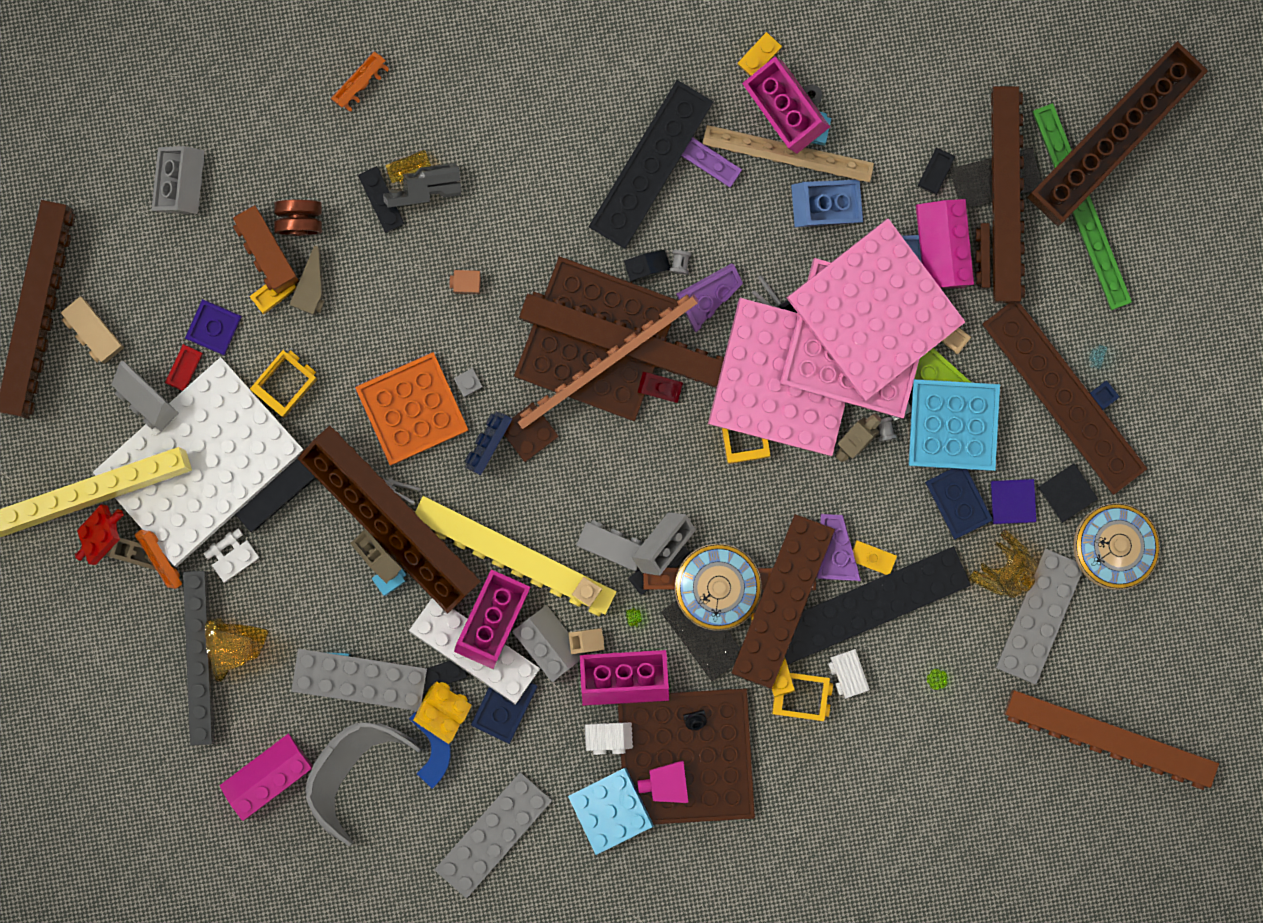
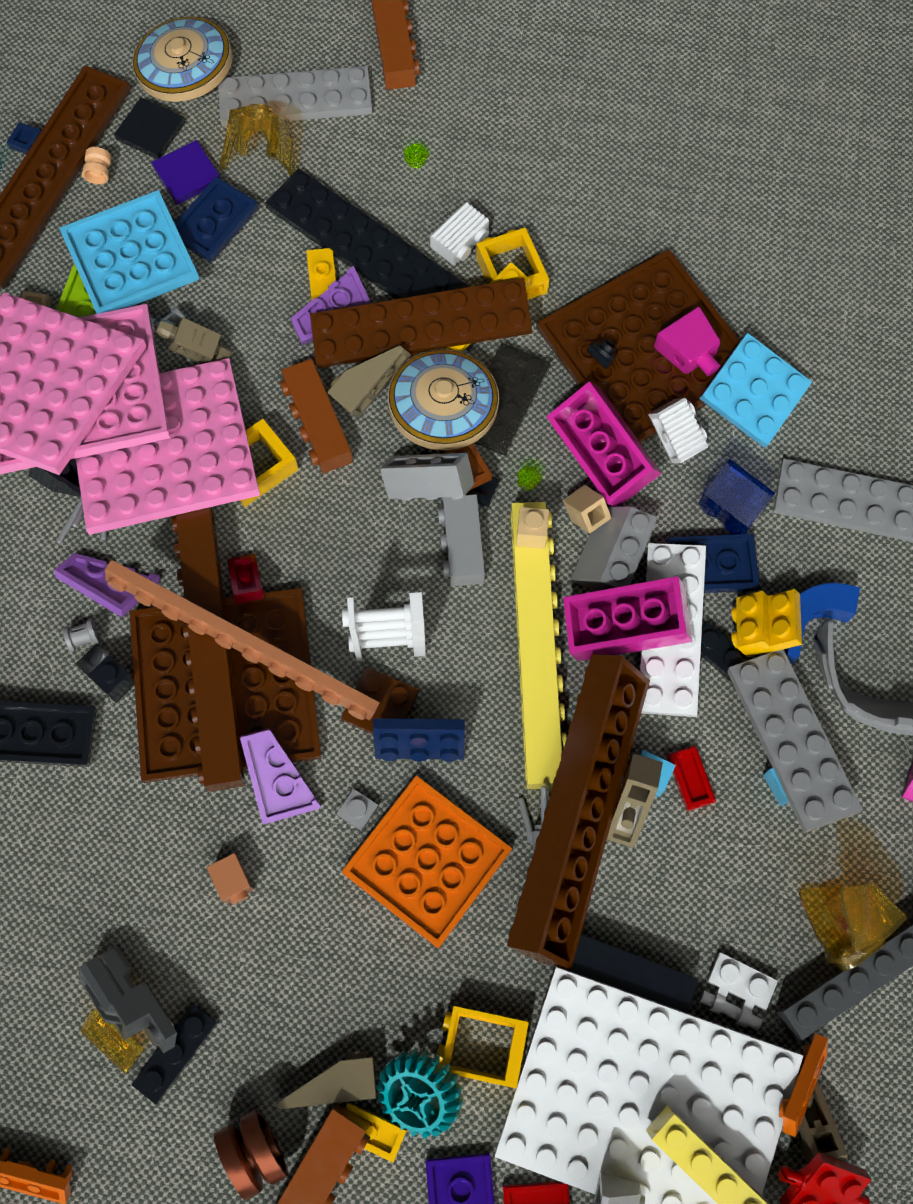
camera: 125 degrees left, 15 degrees down
(277, 331) = (416, 1099): none -> teal gear
(372, 605) = (691, 778): none -> red tile
(513, 340) = (274, 778): none -> medium lavender wing
(537, 744) = (736, 498): none -> clear blue slope
(559, 473) = (386, 626): none -> white fence
(757, 495) = (316, 415): none -> dark orange brick
(762, 537) = (364, 382): none -> dark tan slope
(1050, 437) = (96, 165): none -> light nougat wheel

